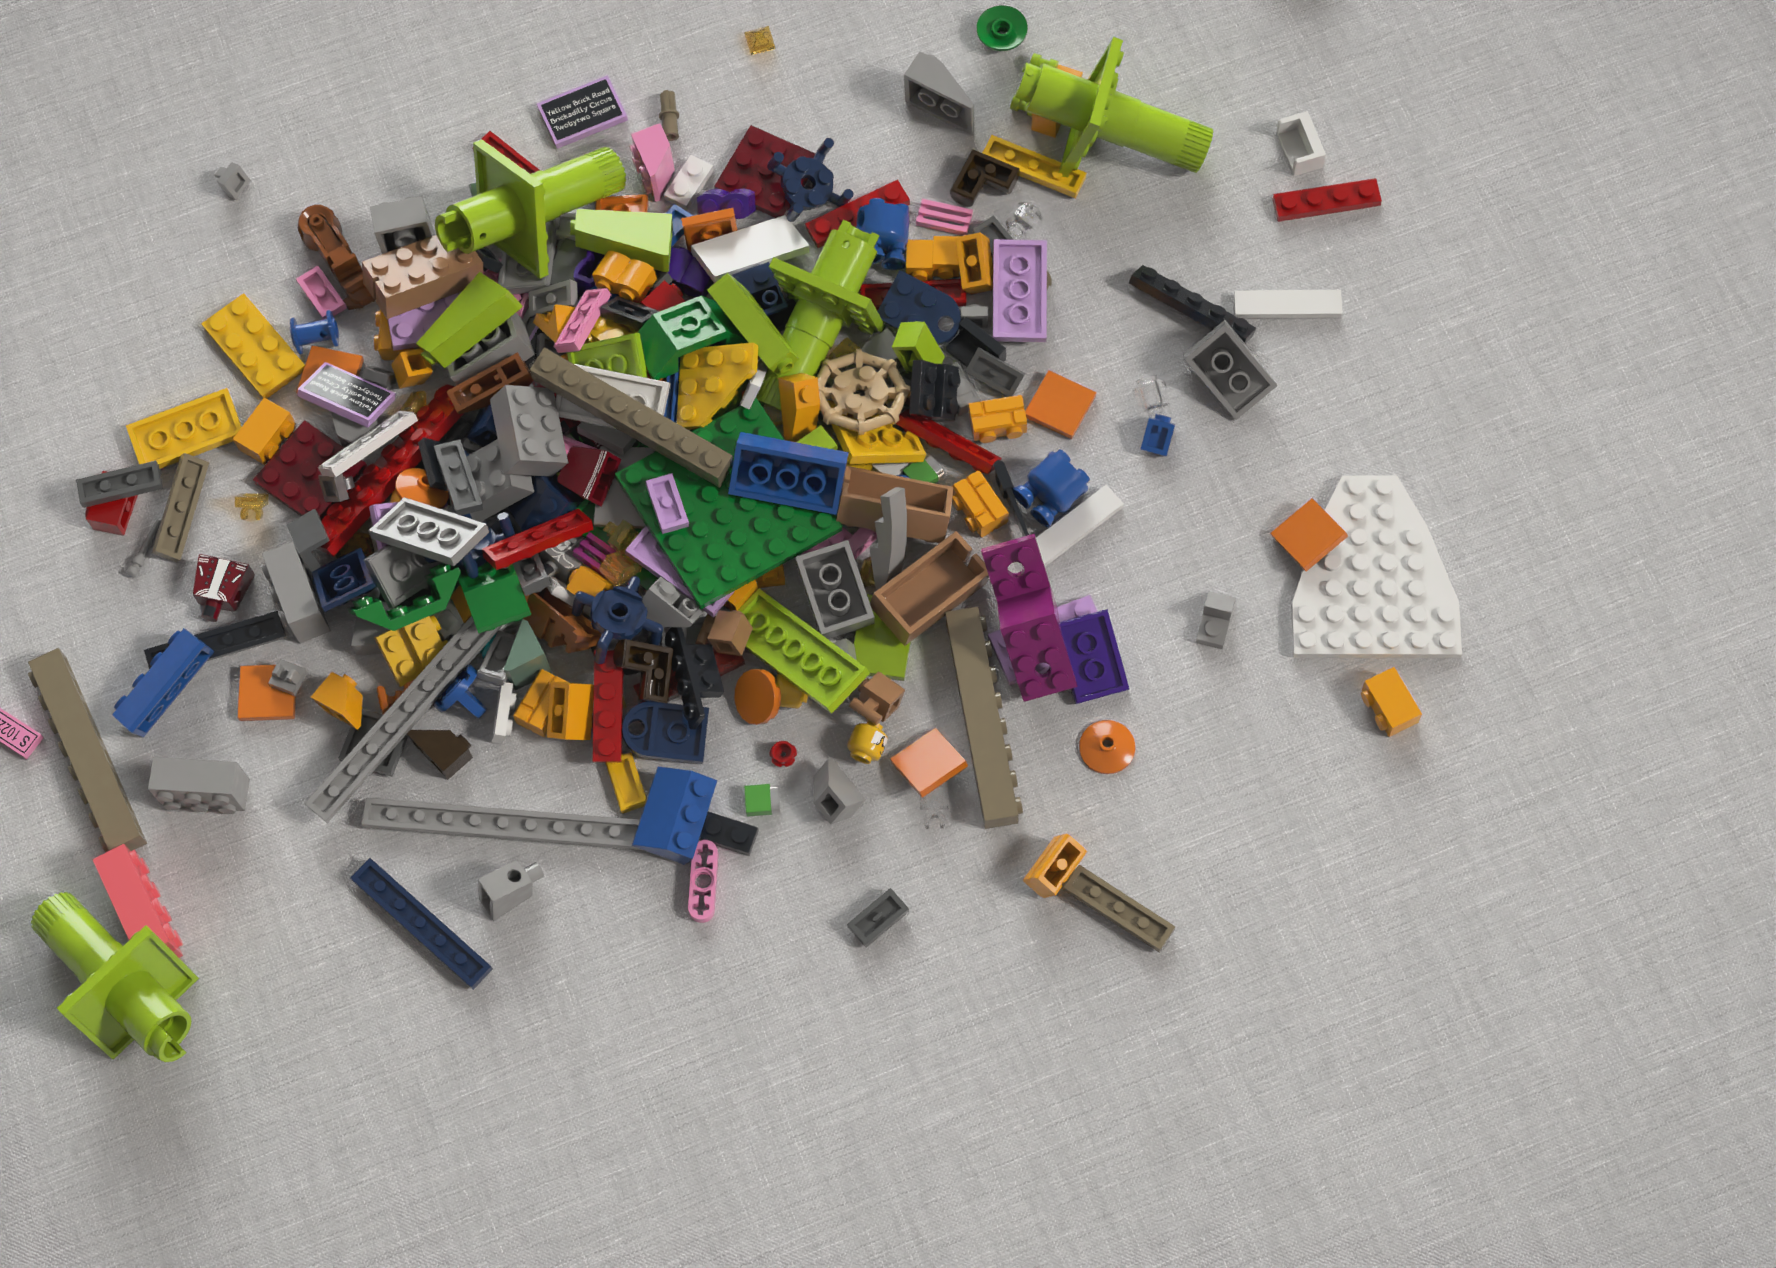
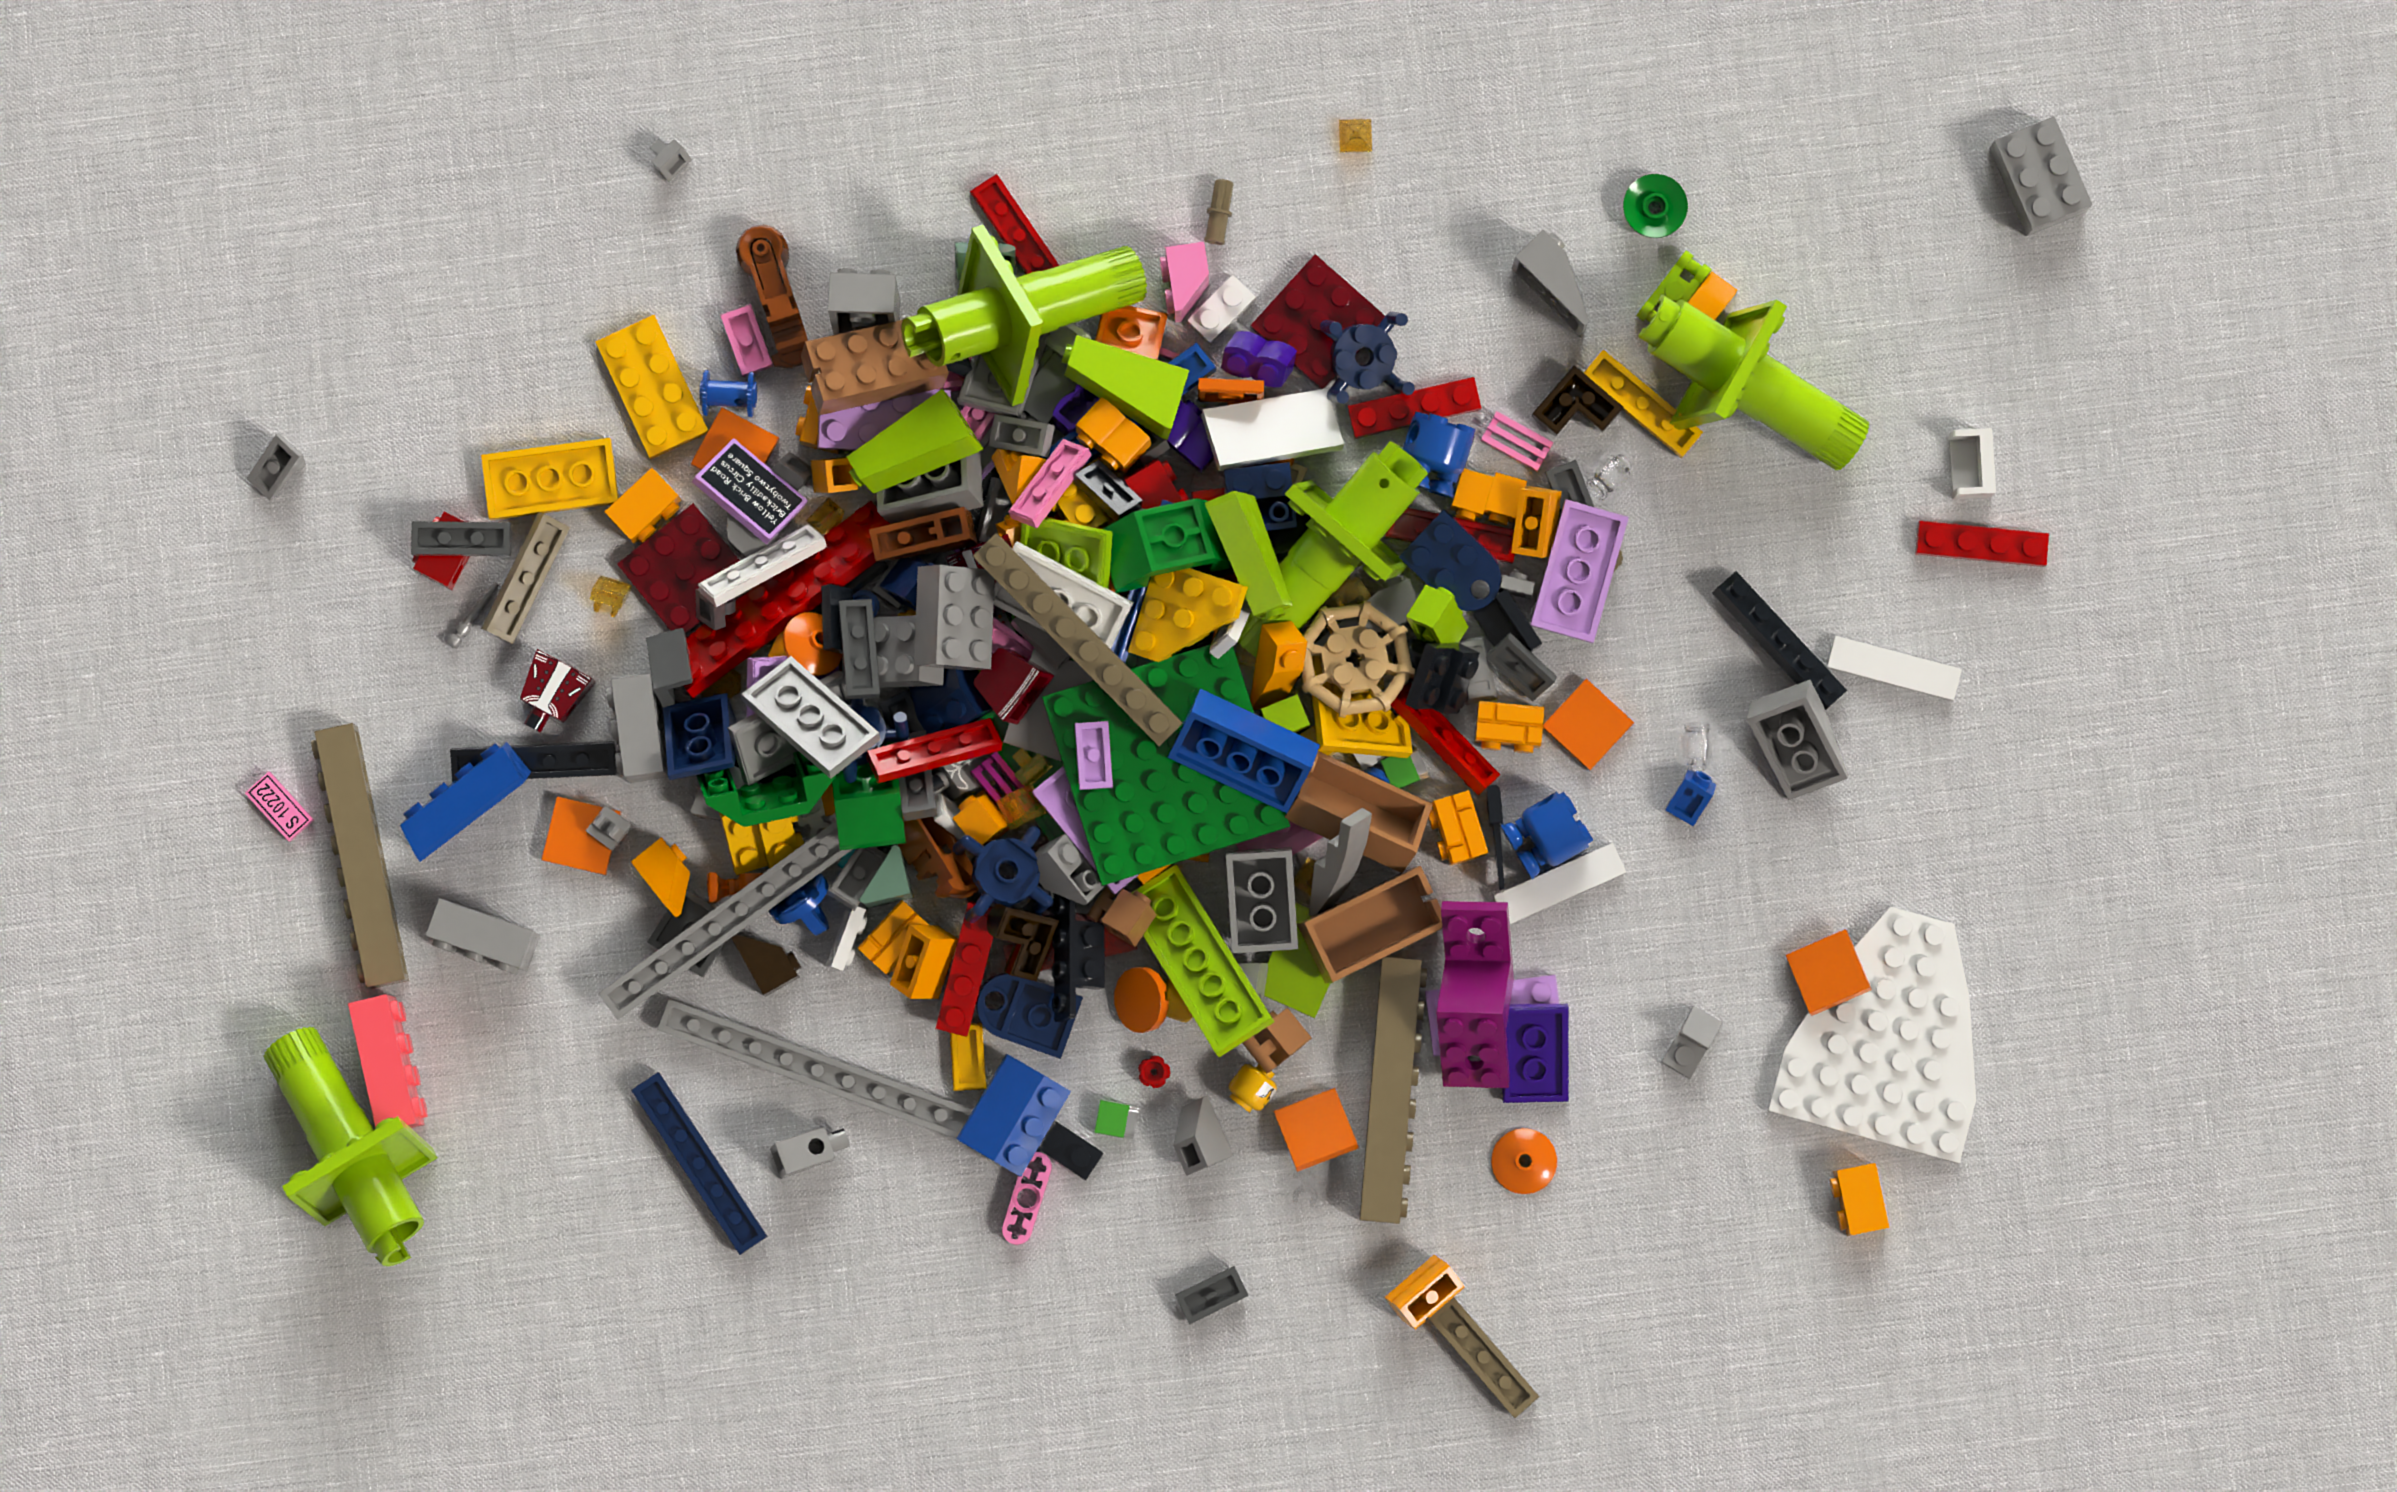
camera: 10 degrees right, 15 degrees up
(582, 112) = (1114, 177): black tile -> none

